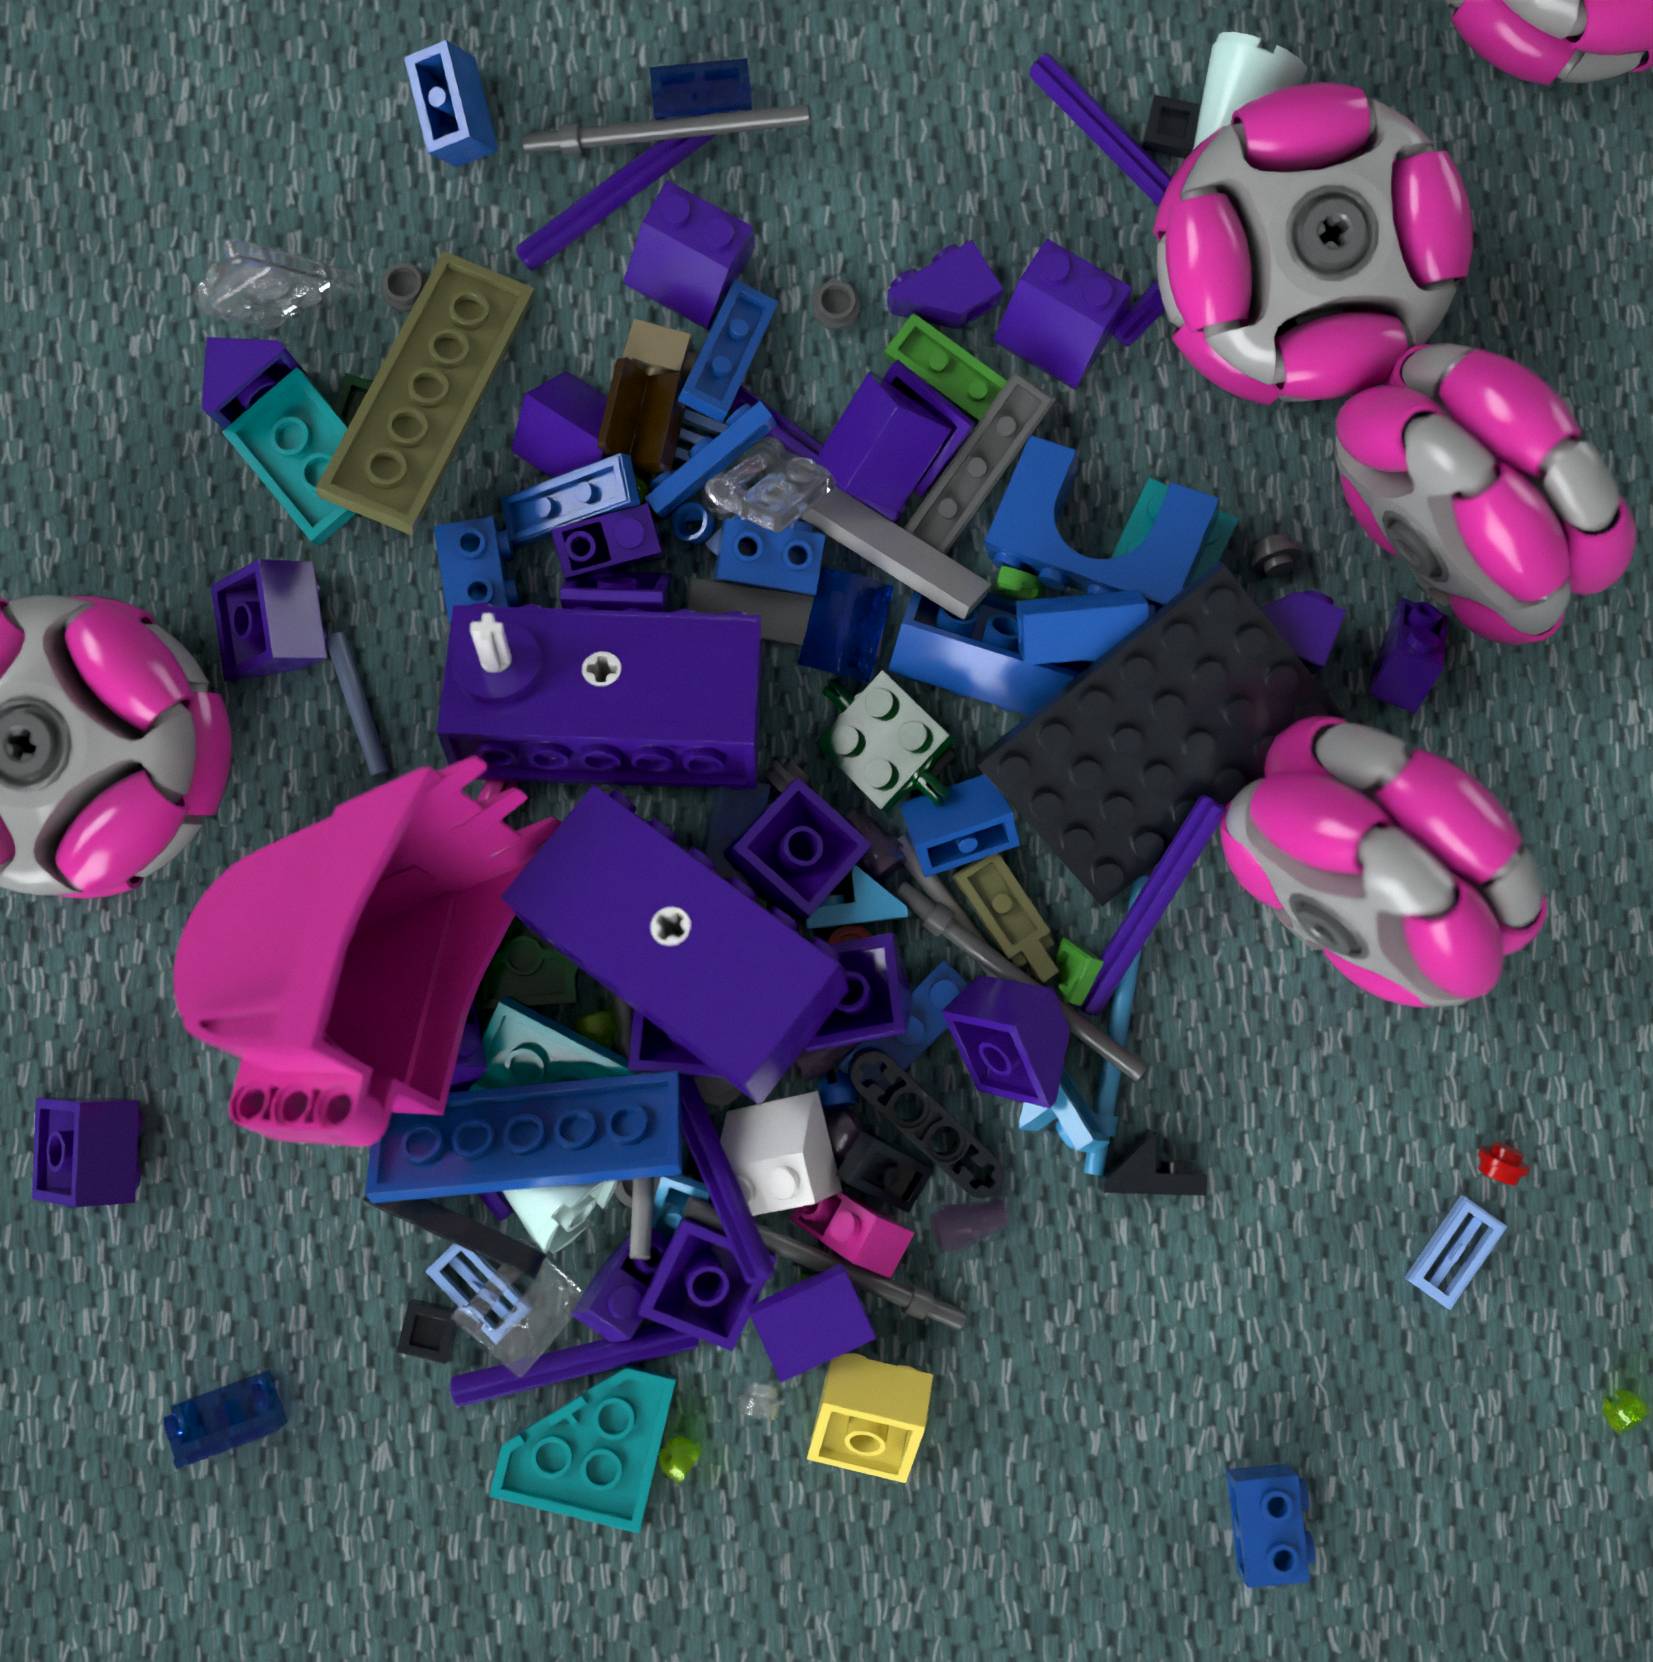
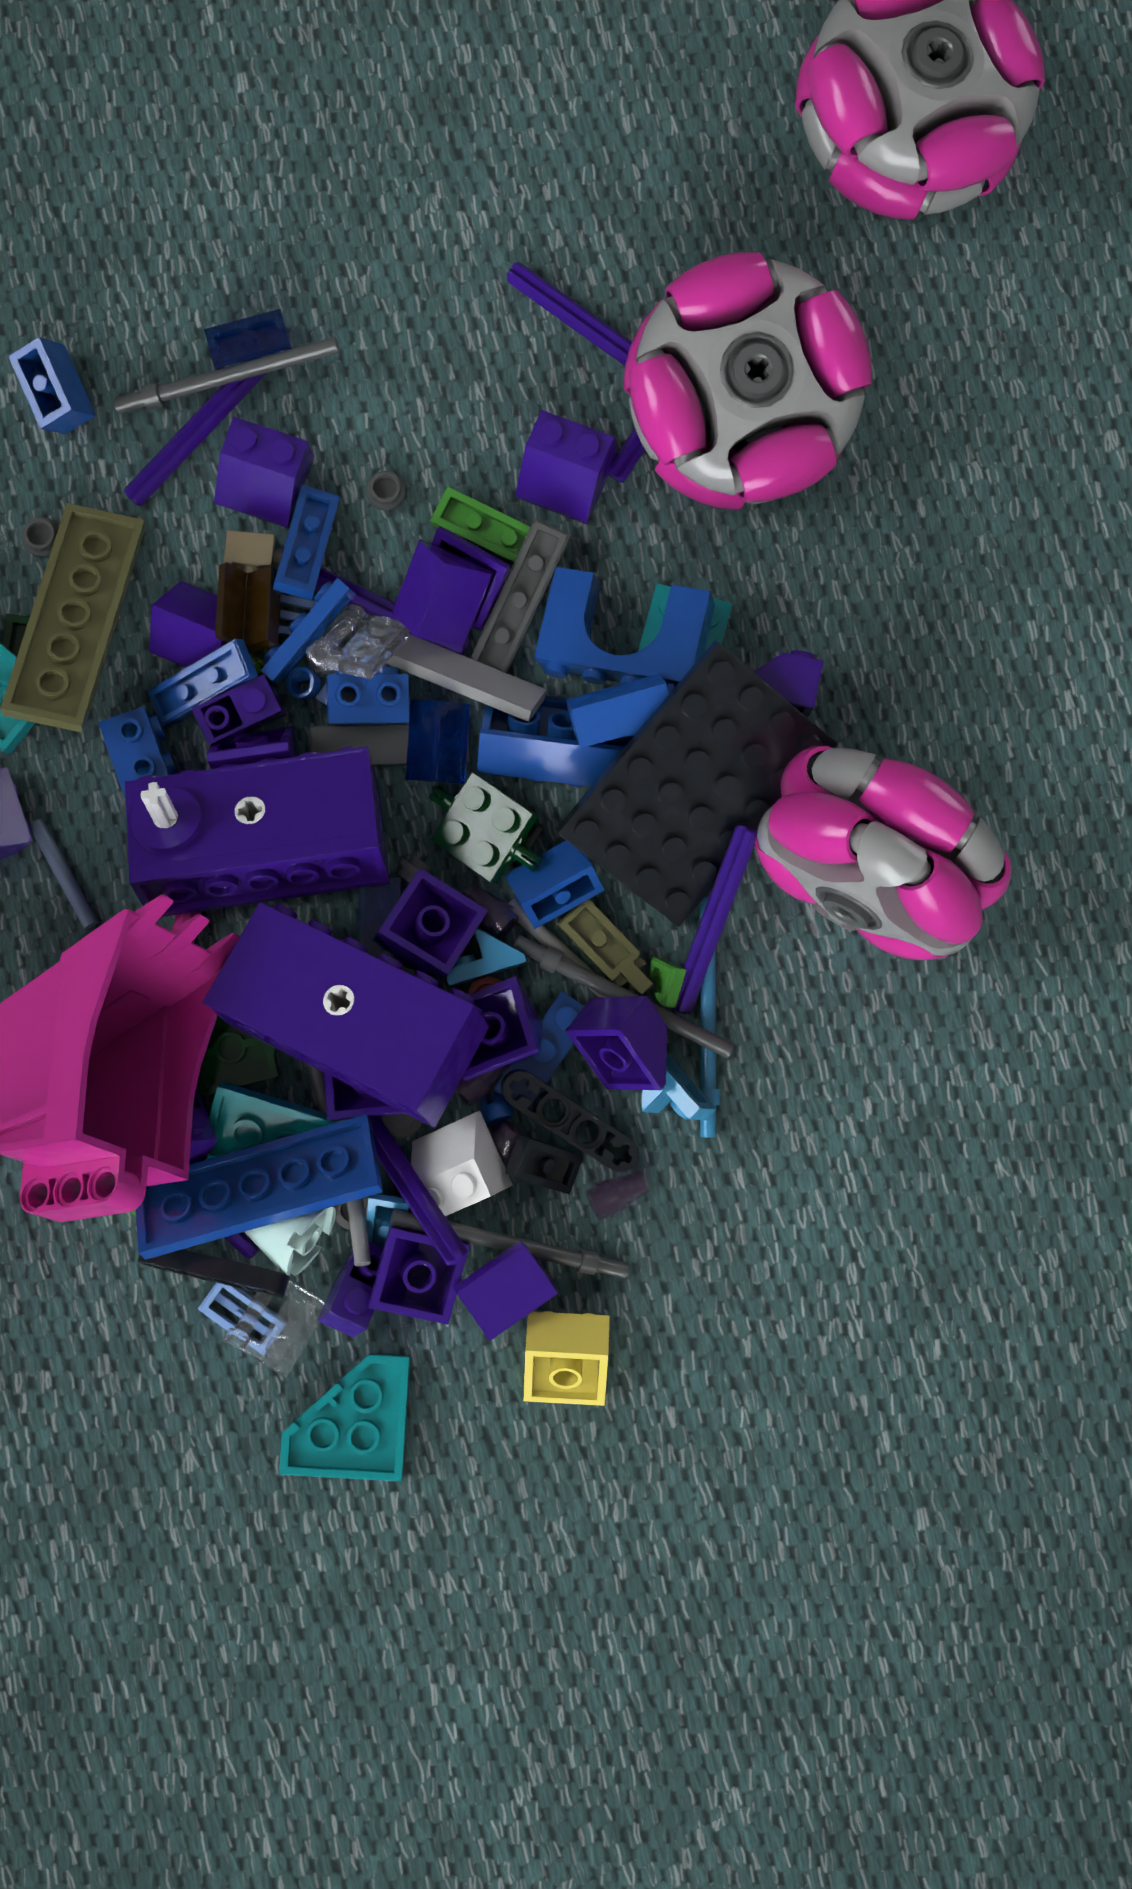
camera: 10 degrees left, 0 degrees up
(224, 1419) = (59, 1452): clear blue hinge -> none
(428, 1331) = (208, 1355): black plate -> none
(570, 1364) = (326, 1359): dark purple axle -> none
(597, 1026) = (299, 1093): clear neon green hinge -> none
(678, 1458) = (422, 1418): clear neon green hinge -> none
(760, 1401) = (479, 1361): clear plate -> none
(856, 1231) = (528, 1215): dark pink slope -> none
(949, 290) = (472, 464): dark purple slope -> none
(1014, 583) = (562, 685): bright green tile -> none
(1137, 1173) = (742, 1131): black slope -> none
(1171, 126) = (625, 302): black plate -> none
(1240, 74) = (671, 253): light aqua cone -> none
(1270, 1525) = (892, 1384): blue brick -> none
(1275, 555) = (766, 627): dark grey plate -> none
(1410, 655) = (884, 686): dark purple slope -> none
(1439, 1241) = (988, 1138): light blue tile -> none
(1483, 490) = (911, 549): piece -> none
(1503, 1163) = (1026, 1070): red plate -> none

